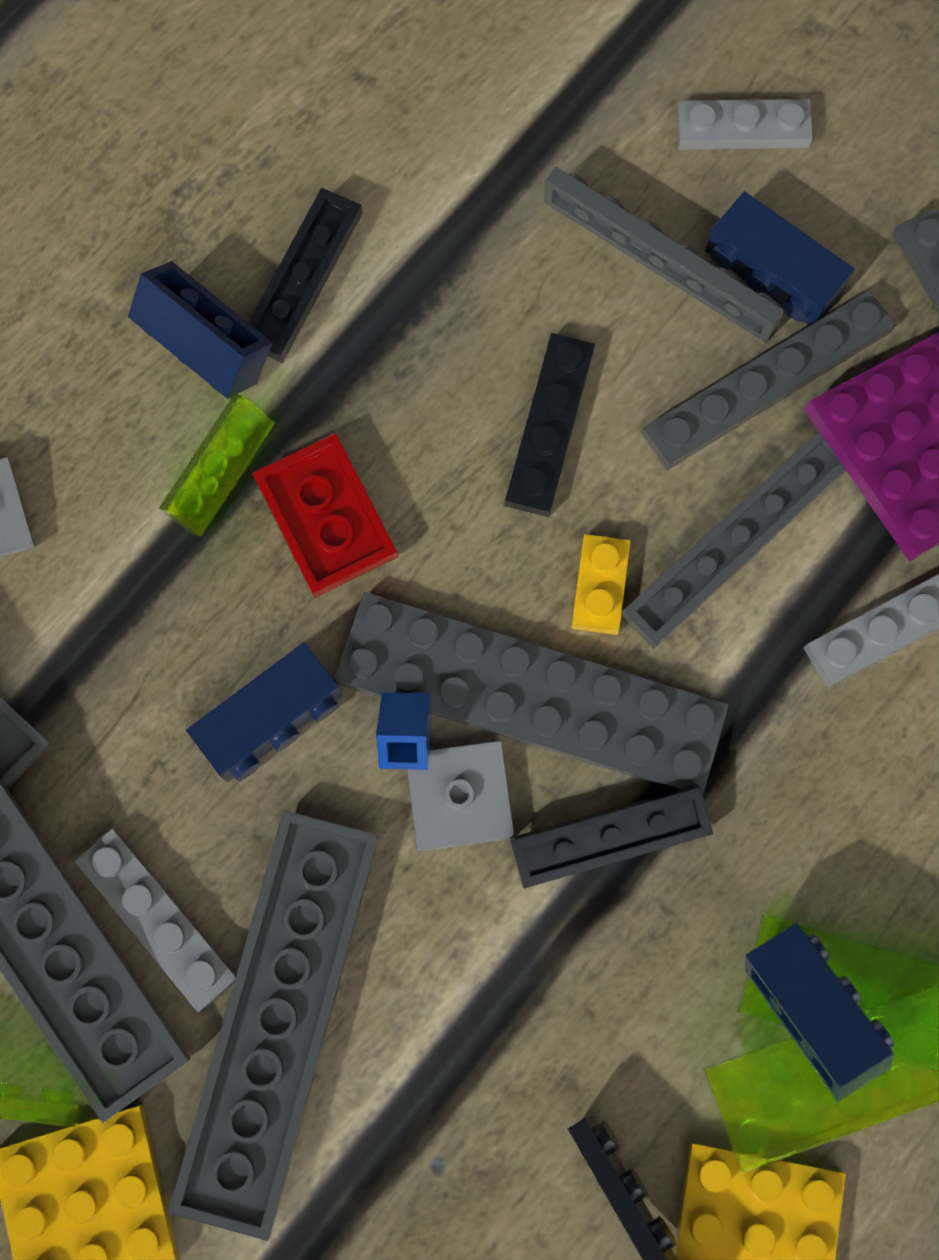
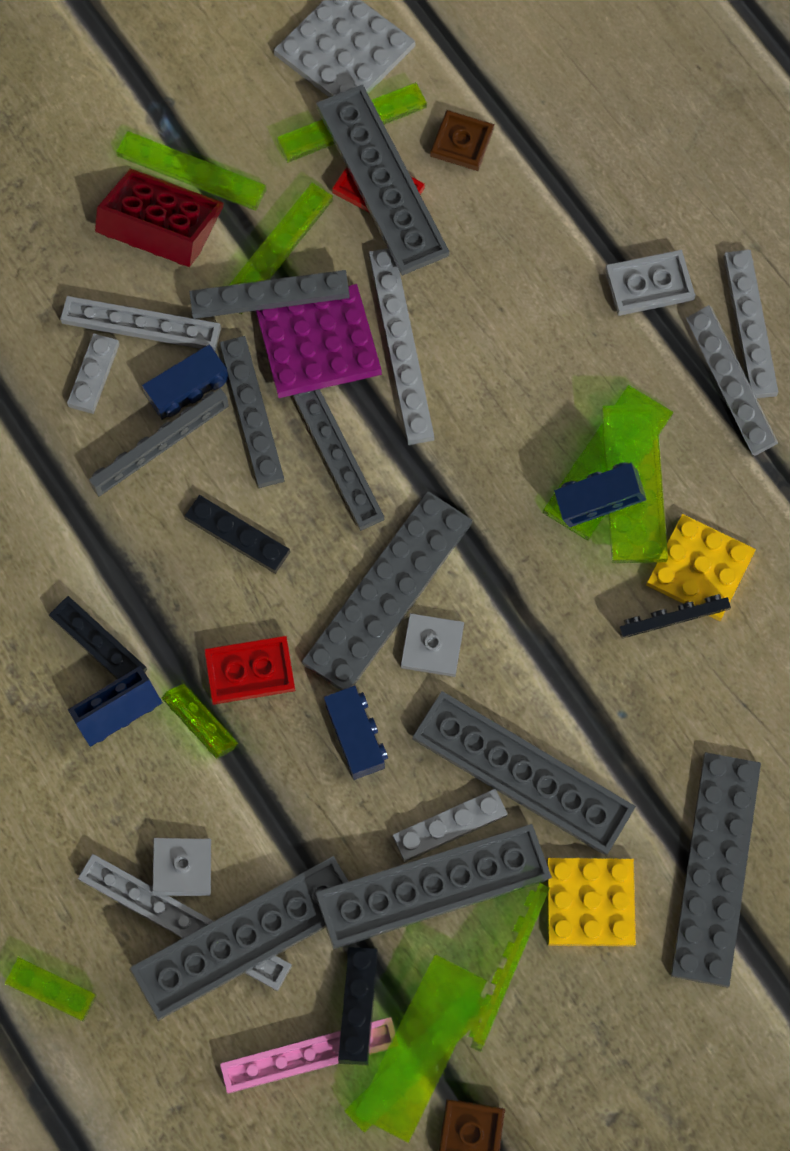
camera: 75 degrees left, 5 degrees down
(404, 731) = (390, 659): blue brick -> none
(600, 584) = (339, 536): yellow plate -> none
(611, 836) = (479, 573): black plate -> none
(854, 164) = (140, 323): none -> light grey plate

